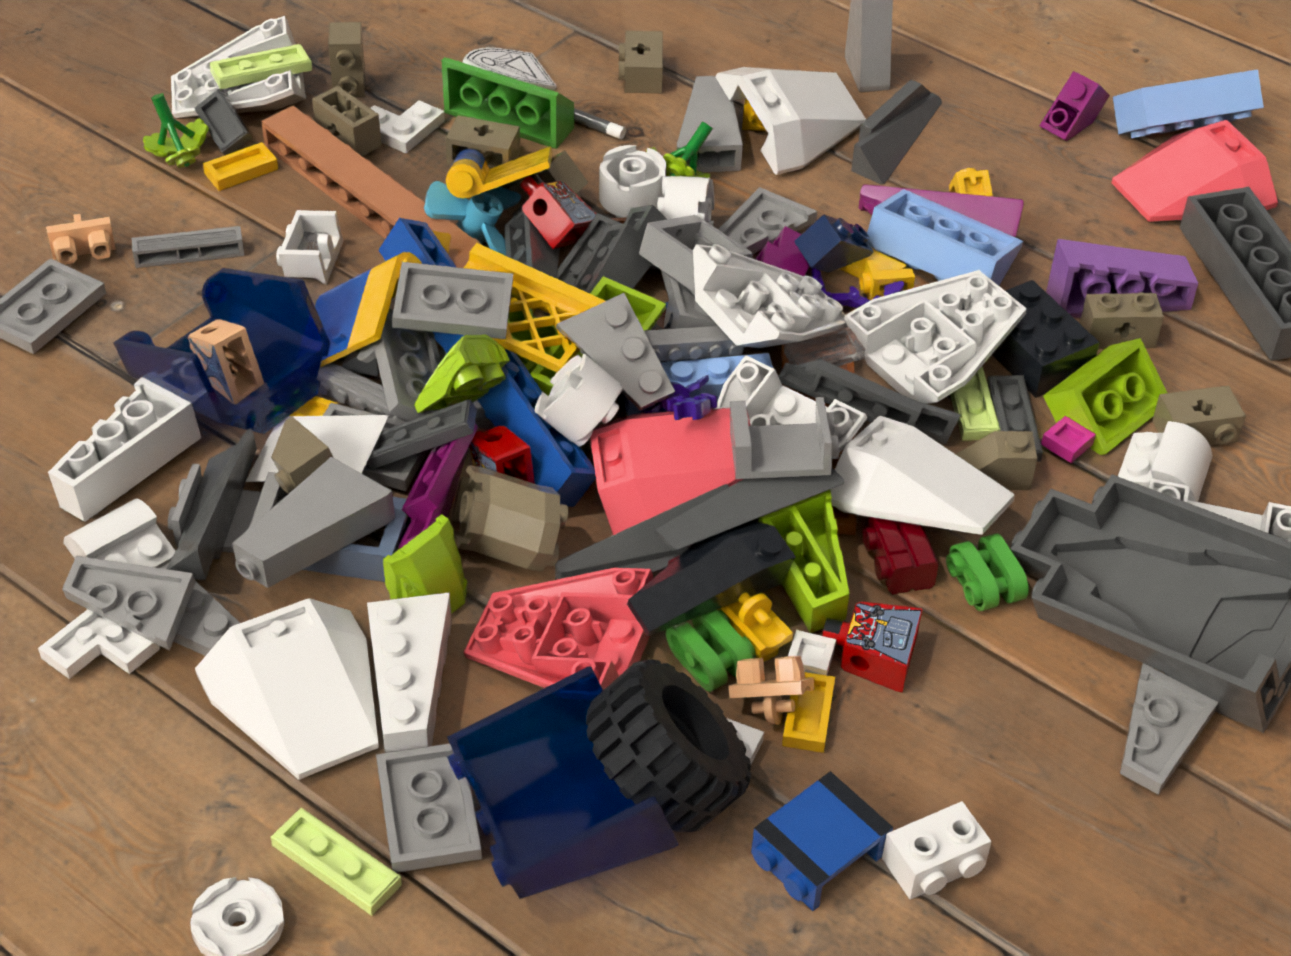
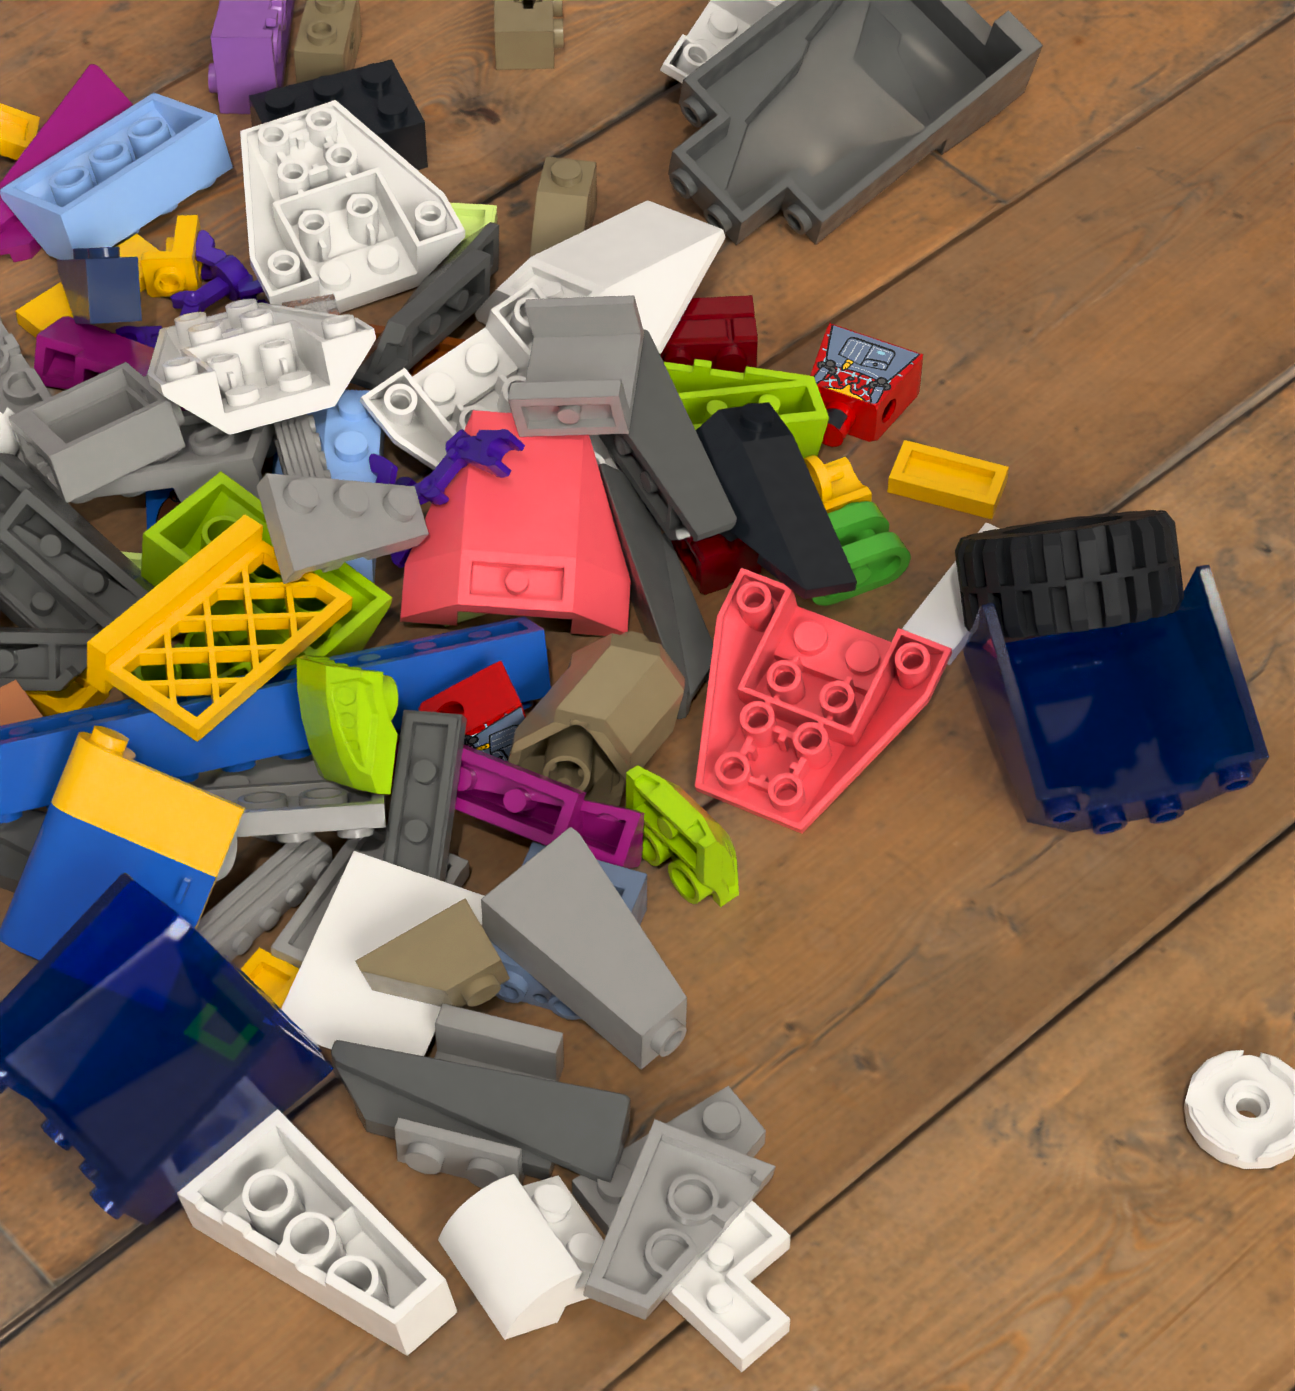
camera: 80 degrees left, 5 degrees up
(224, 350) = (154, 1071): light nougat torso -> none
(296, 685) = (862, 1023): white wedge -> none
(336, 861) = (1148, 1000): yellowish green tile -> none
(409, 660) = (854, 882): white wedge -> none
(426, 809) = (1076, 883): light grey plate -> none
(452, 300) = (210, 689): light grey plate -> none
(579, 399) = (450, 584): white brick -> none
(789, 681) = (933, 495): light nougat hips -> none
(814, 650) = (869, 453): white plate -> none
(818, 838) = (1166, 470): blue panel -> none
(936, 850) = (1182, 392): white brick -> none
(987, 572) = (760, 261): bright green brick -> none
(1013, 406) = (509, 190): dark grey tile -> none
(1068, 439) = (529, 143): dark pink plate -> none
(1110, 394) = (462, 90): lime slope -> none
(1162, 727) = (1014, 167): light grey wing -> none
(1173, 456) = (597, 68): white brick -> none

